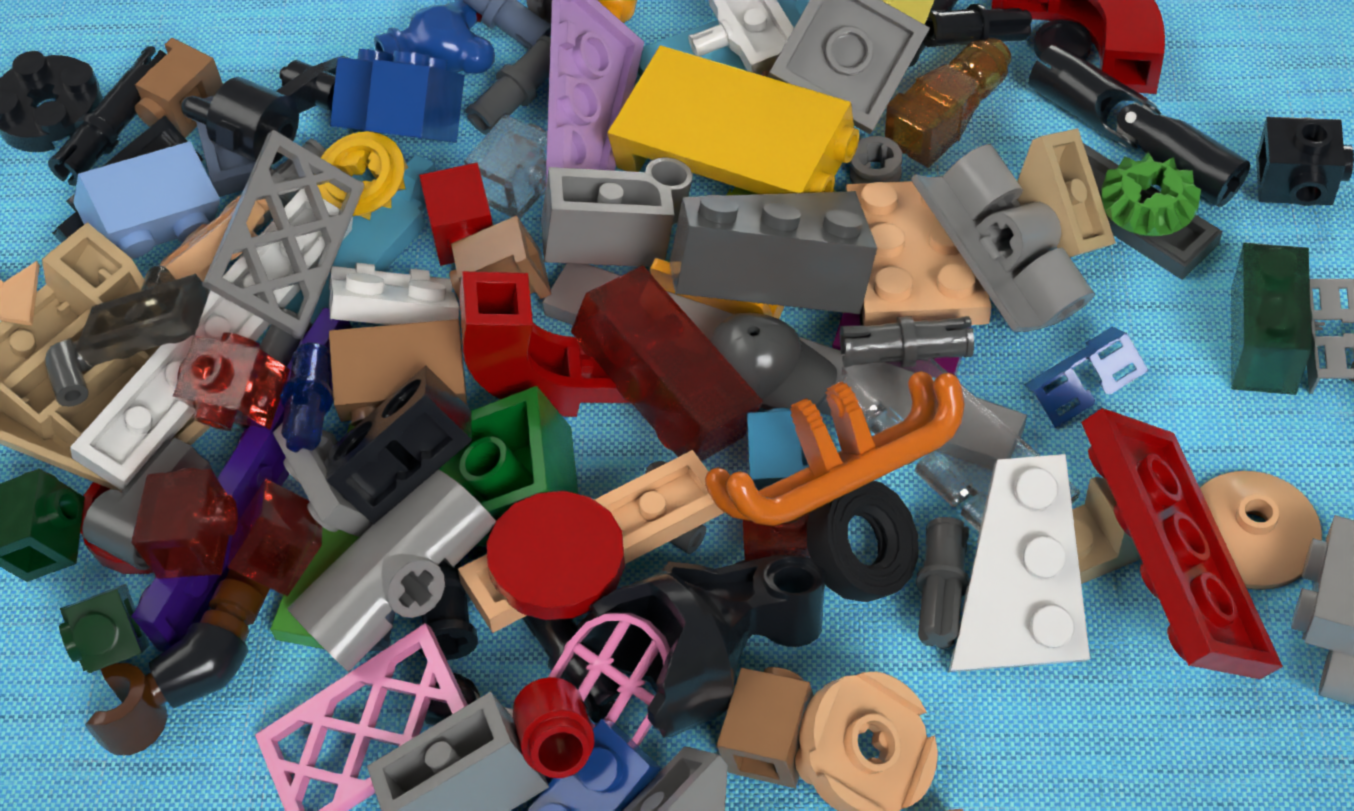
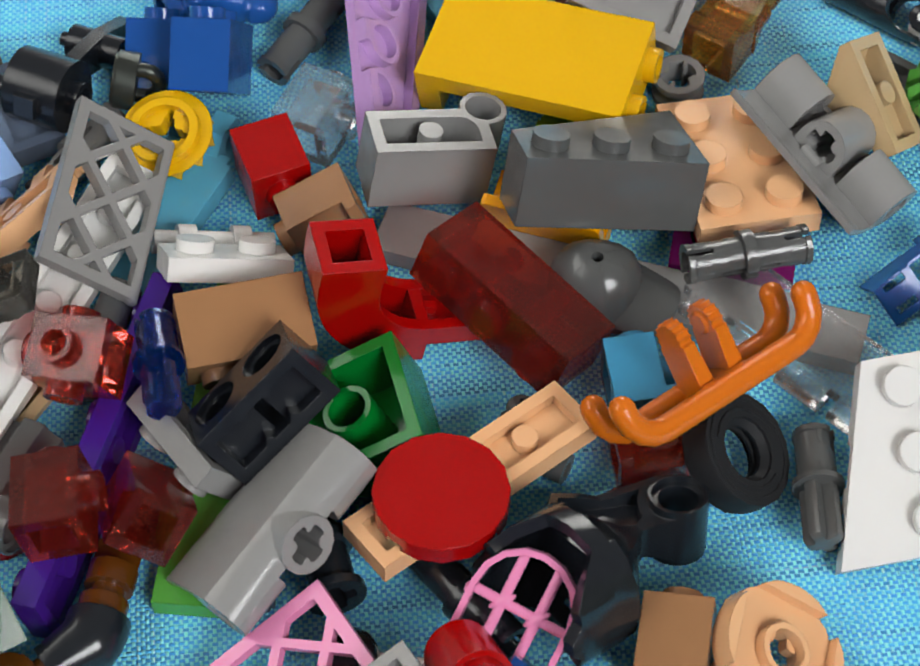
camera: 10 degrees left, 0 degrees up
(329, 118) = (125, 80): none -> pearl dark grey tile

